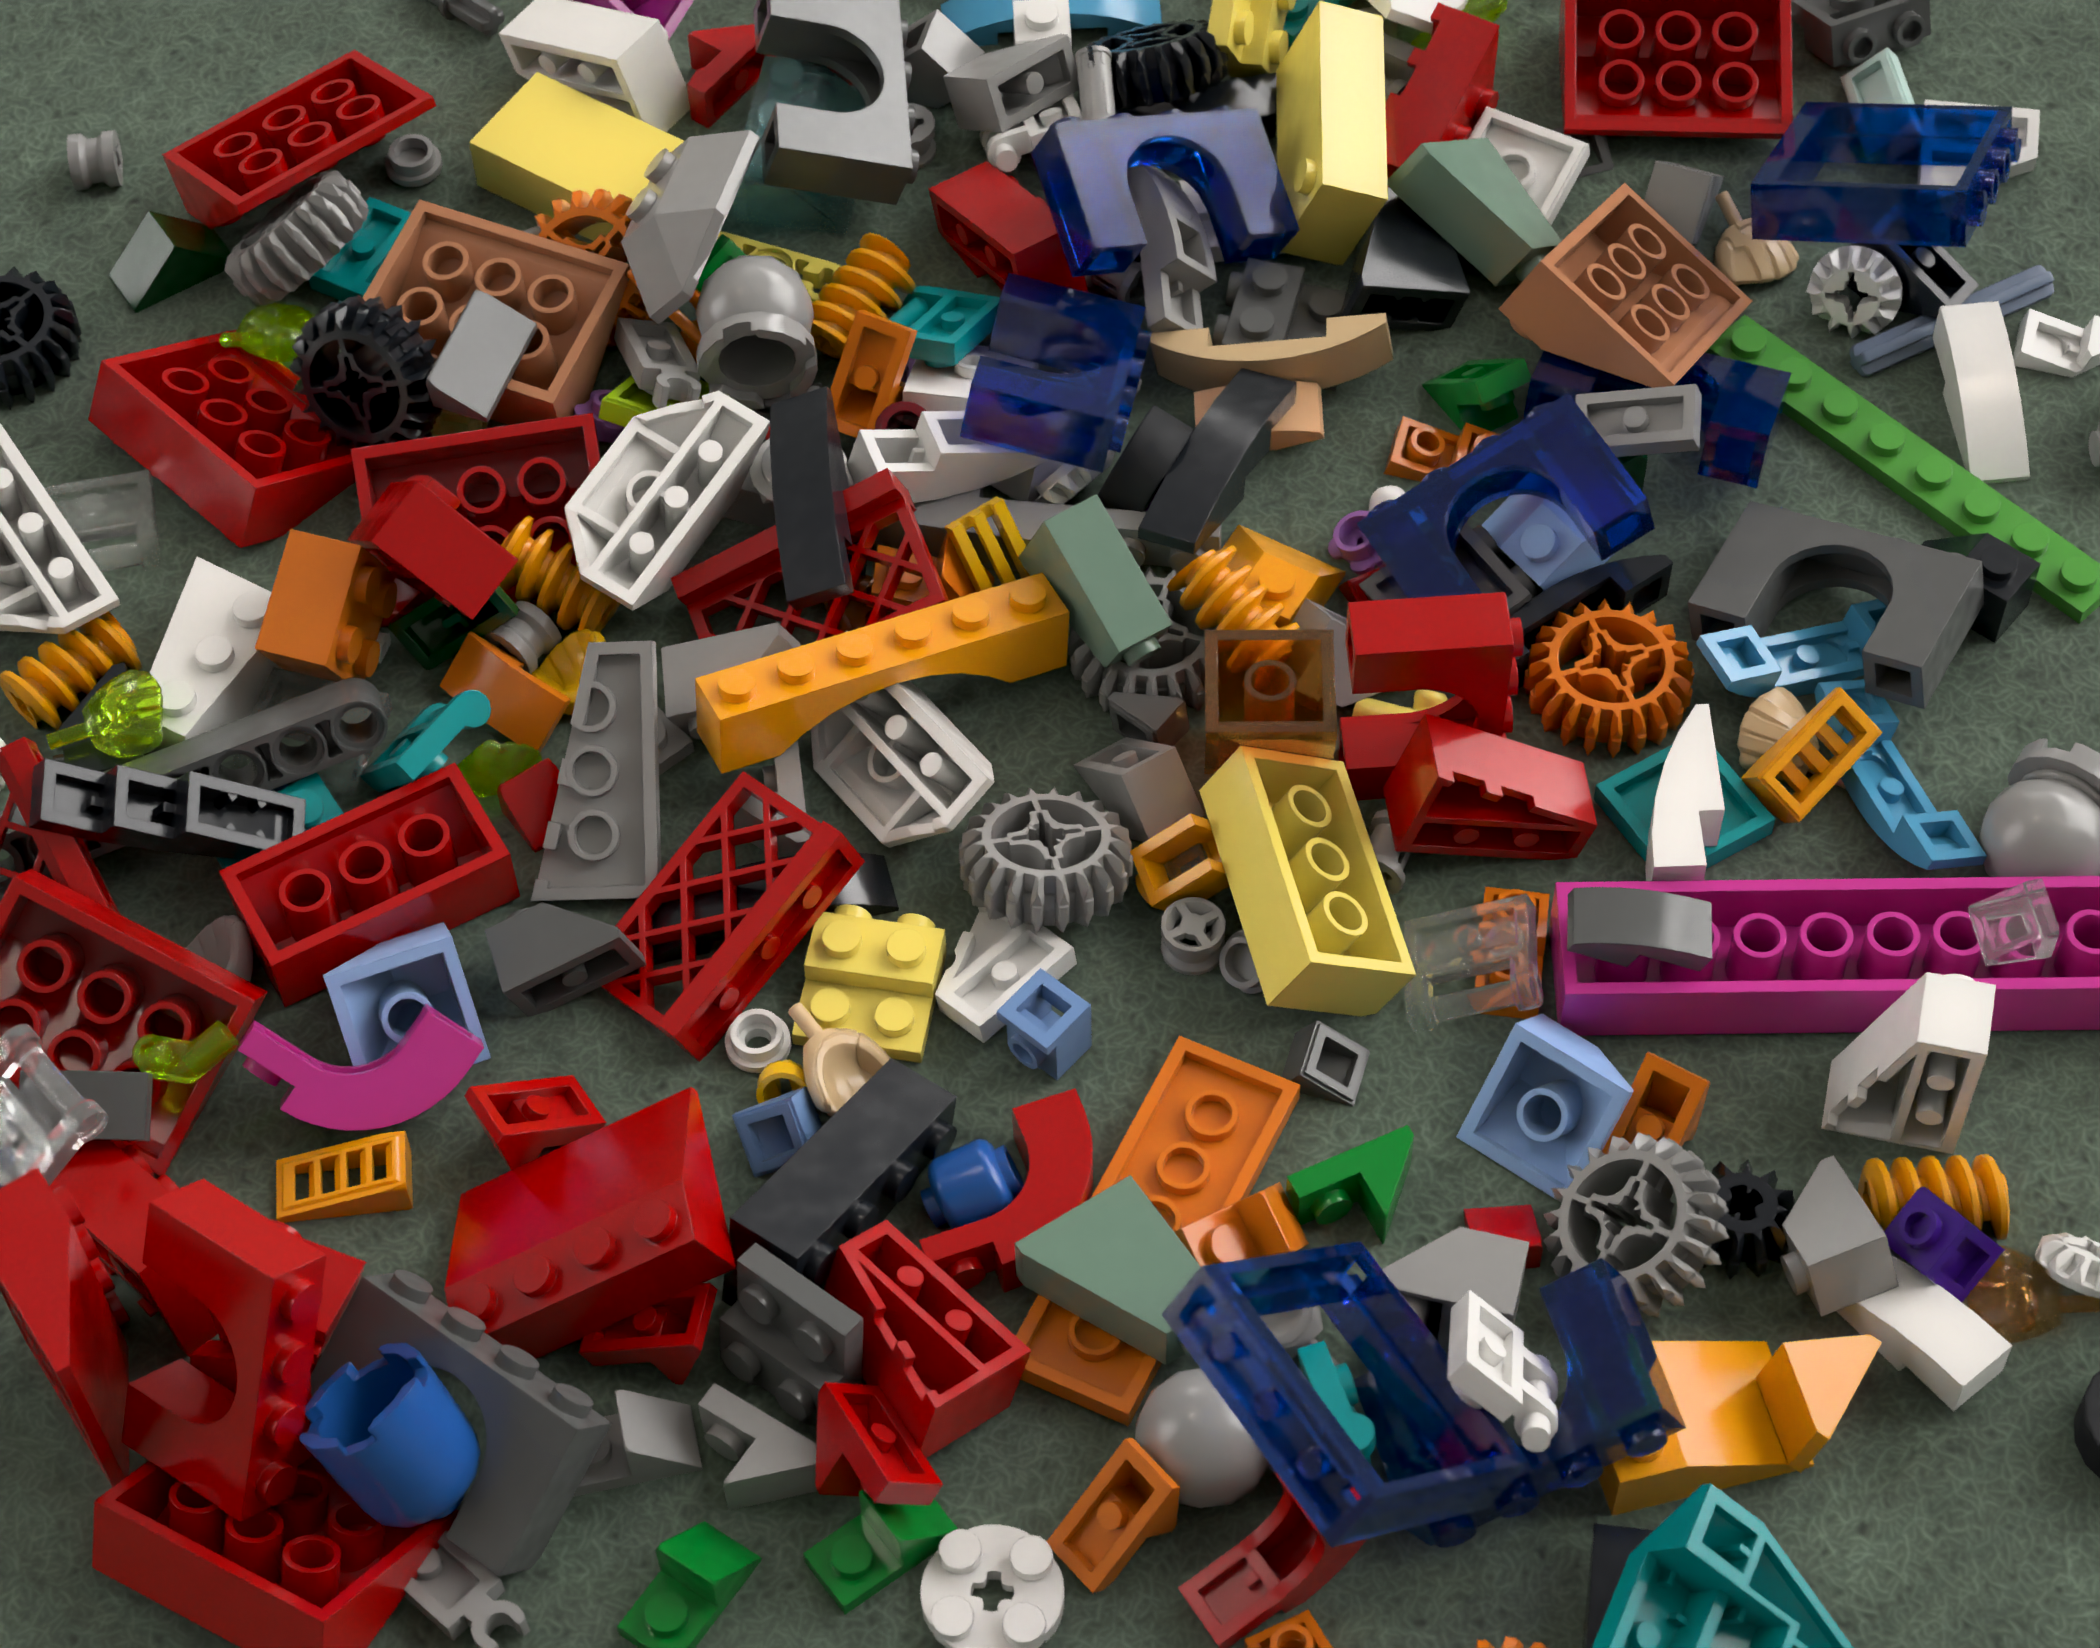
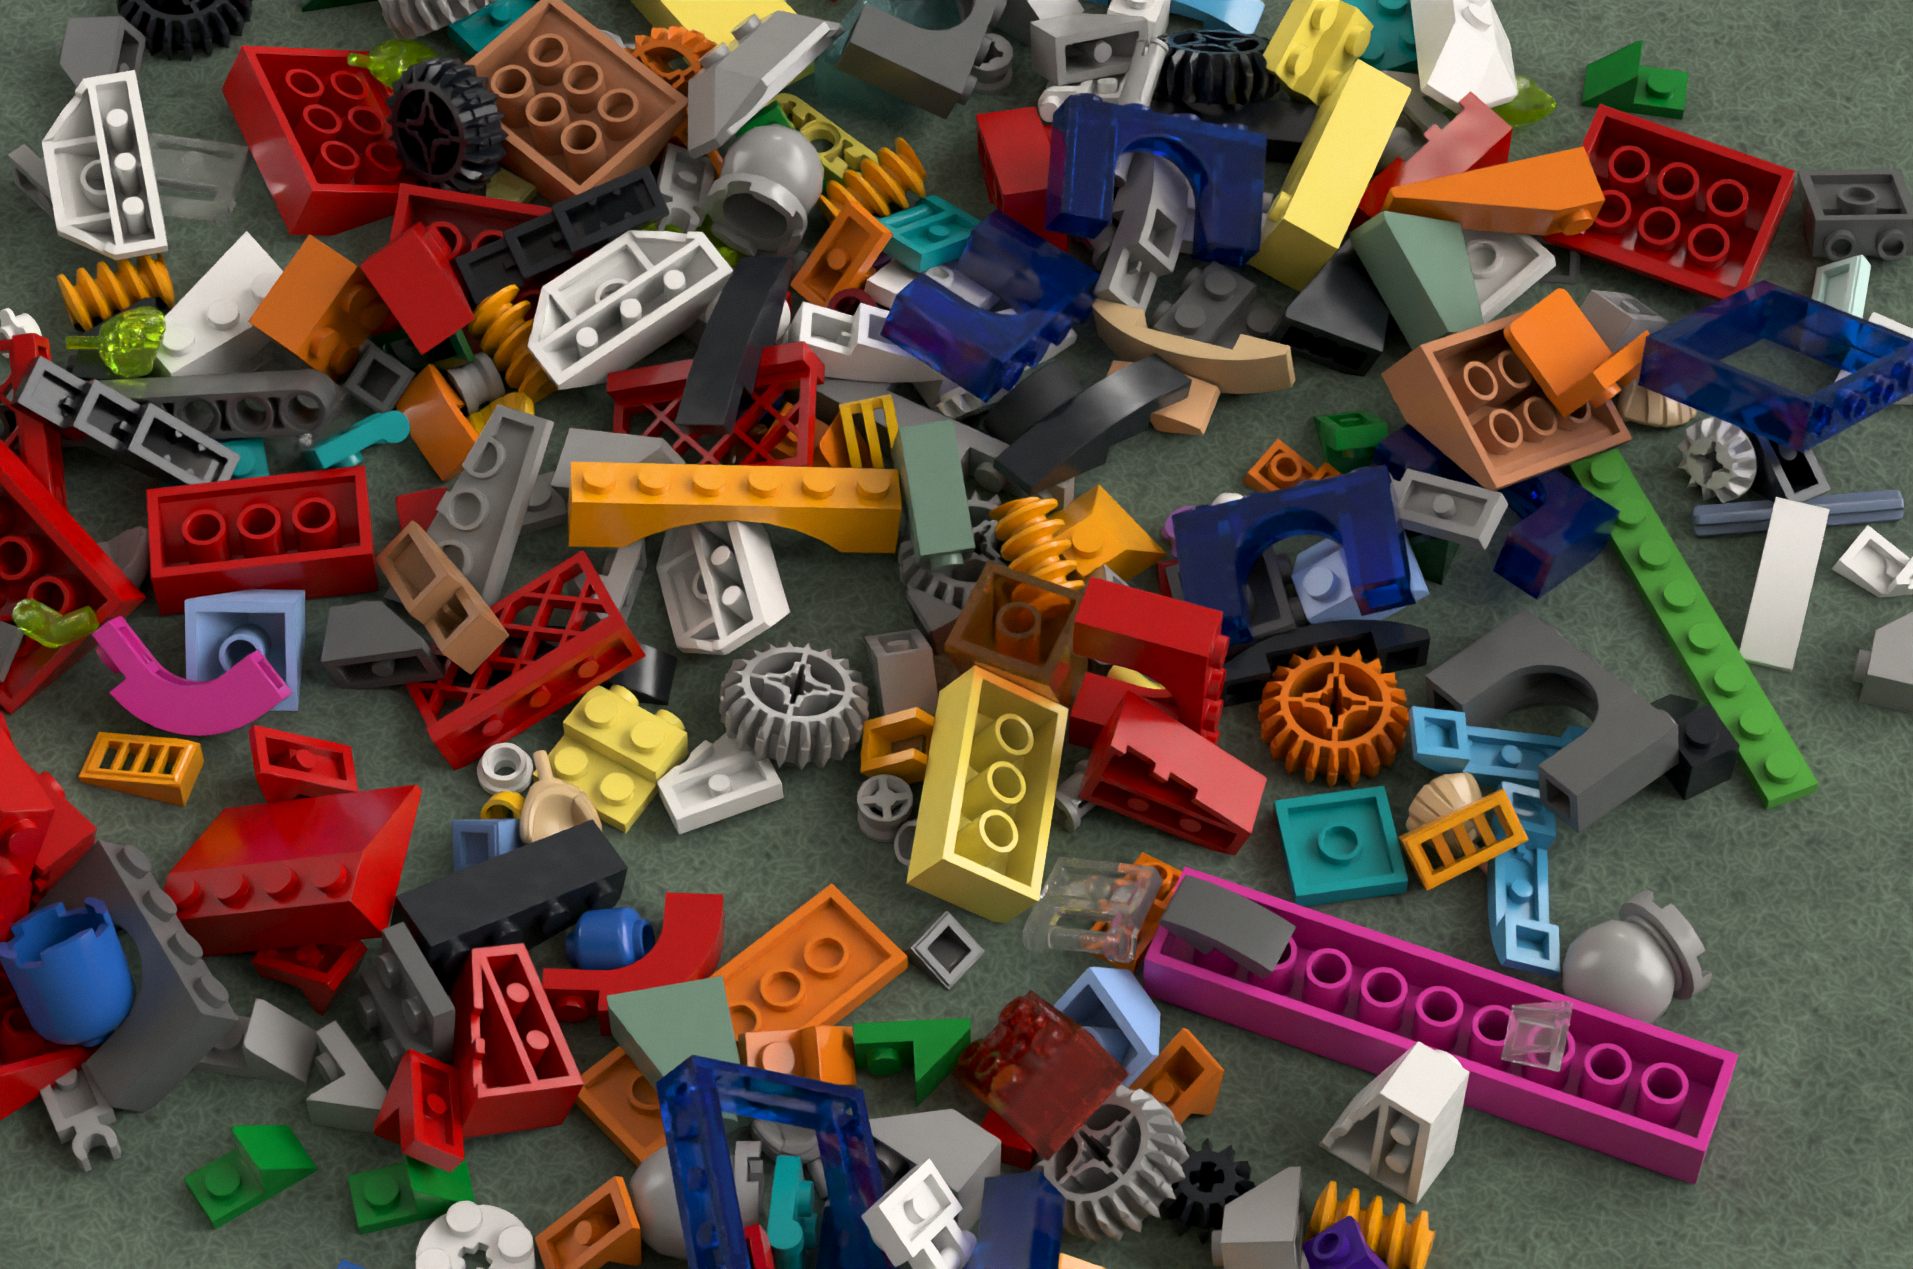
camera: 20 degrees right, 0 degrees up
(418, 669) = (379, 379): none -> dark grey slope
(479, 357) = (535, 140): slope -> none
(496, 763) = (398, 478): clear neon green piece -> none
(564, 442) = (564, 235): none -> black slope
(607, 876) = (441, 598): none -> medium nougat slope
(1040, 1035) = (727, 837): medium blue brick -> none
(1517, 1155) = (1039, 1073): none -> clear red slope
(1531, 95) = (1518, 197): none -> orange slope
(1673, 237) = (1570, 355): none -> orange bracket
(1686, 804) = (1328, 840): white slope -> none

